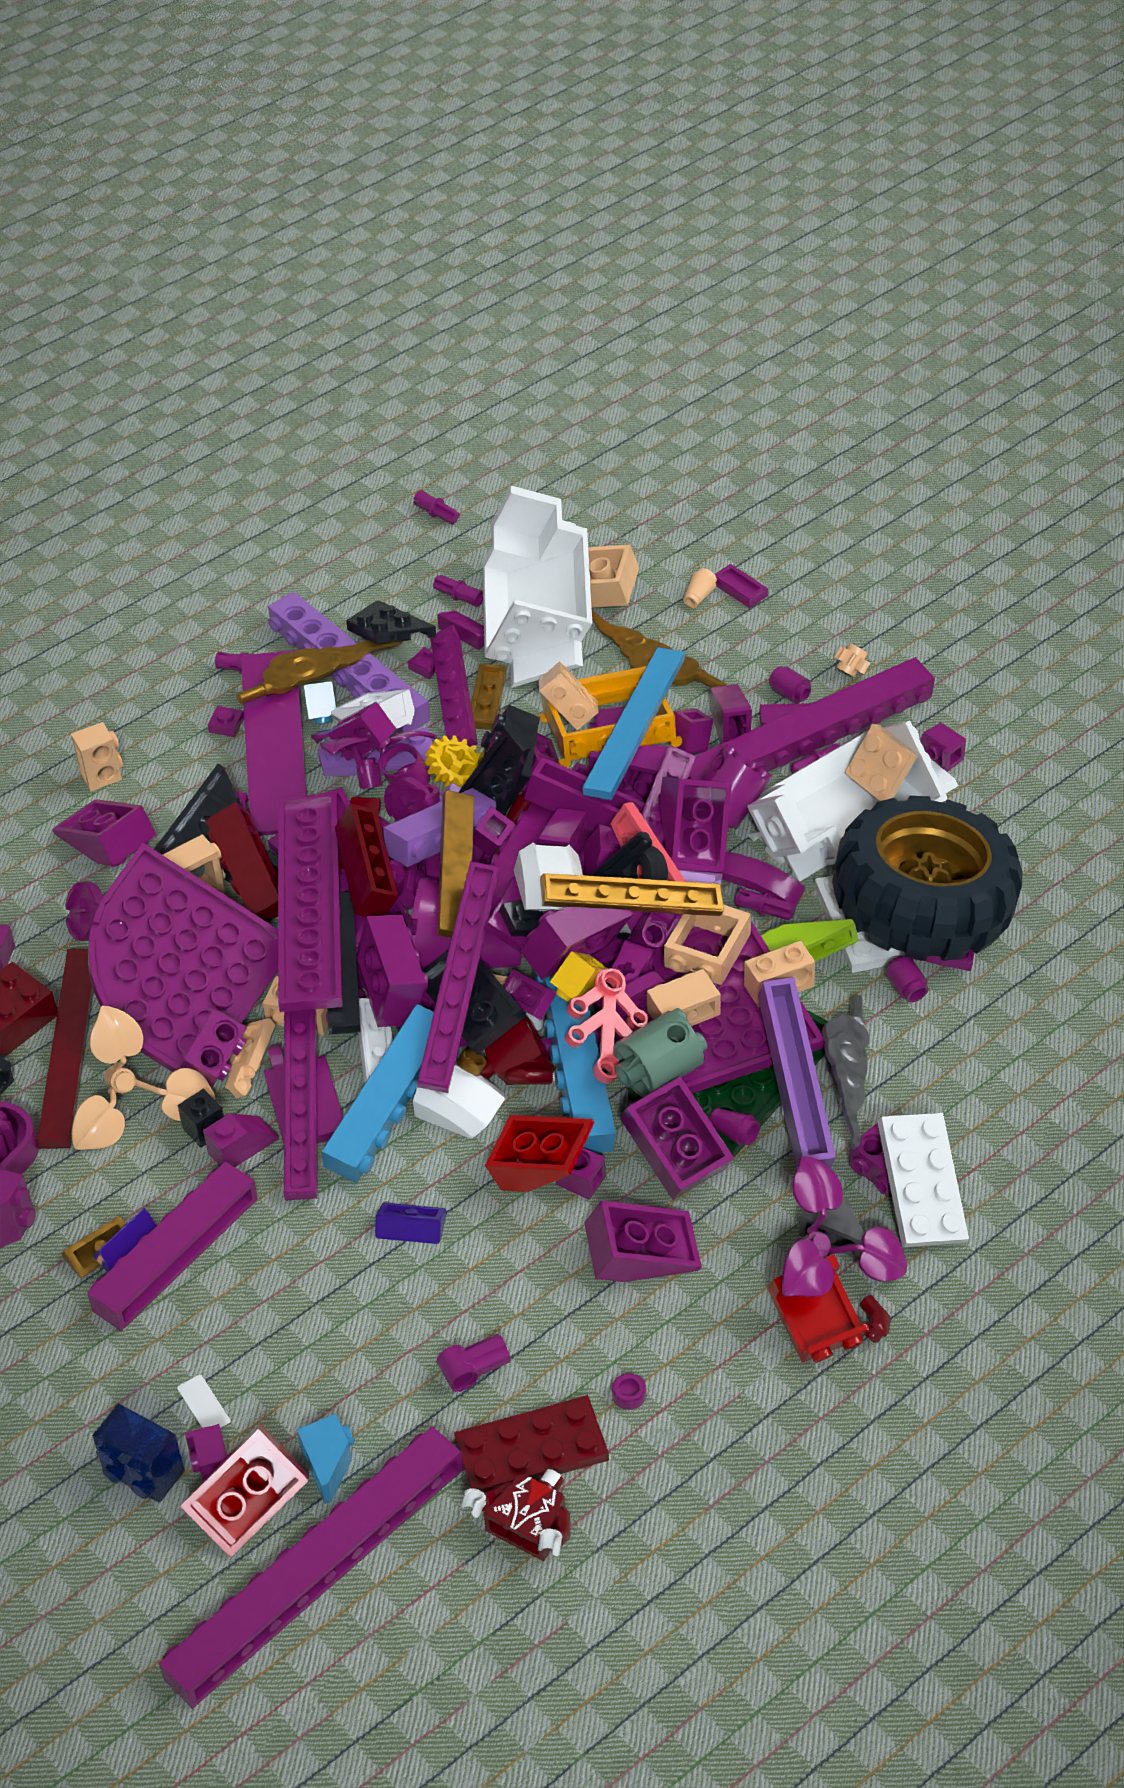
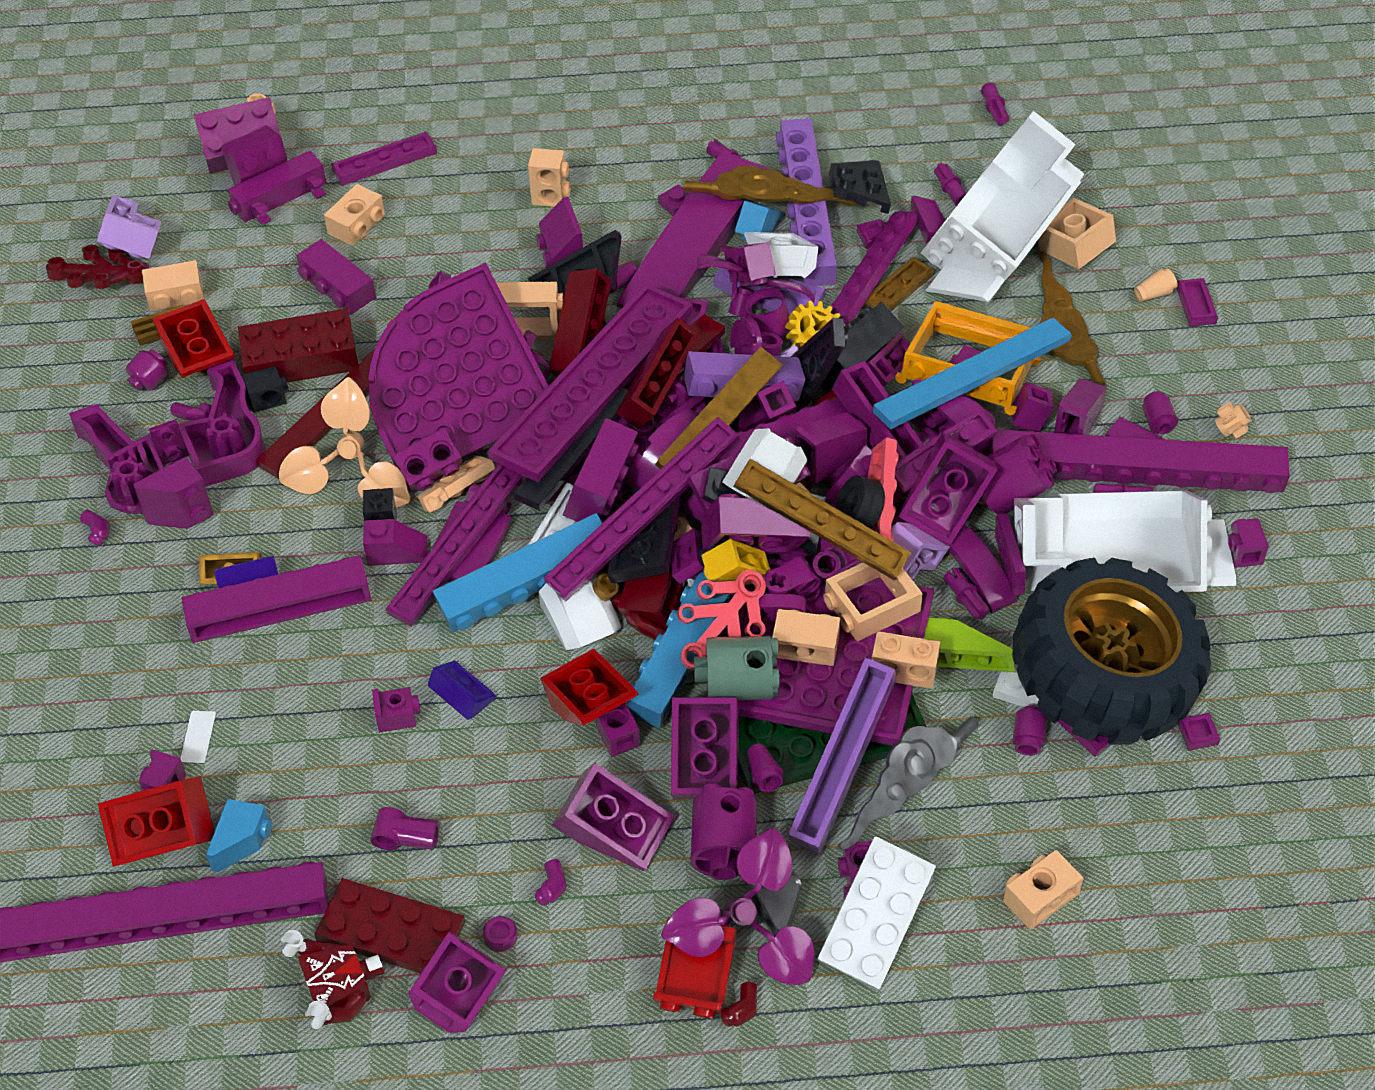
camera: 35 degrees right, 5 degrees up
(106, 831) = (510, 243): magenta slope -> none
(138, 1453) = (106, 744): clear blue brick -> none
(160, 795) = (559, 233): none -> magenta slope
(370, 1270) = (395, 709): none -> magenta brick
(568, 695) = (946, 321): light nougat brick -> none
(624, 856) = (842, 484): black axle -> none
(637, 1448) = (455, 984): none -> magenta slope
(640, 1324) = (553, 886): none -> magenta arm
(748, 1193) = (720, 827): none -> magenta cylinder
(776, 852) = (1010, 554): none -> magenta tile
(881, 763) = (1168, 526): light nougat plate -> none
(1022, 1089) = (1035, 905): none -> light nougat brick
(1030, 908) = (1199, 731): none -> magenta tile

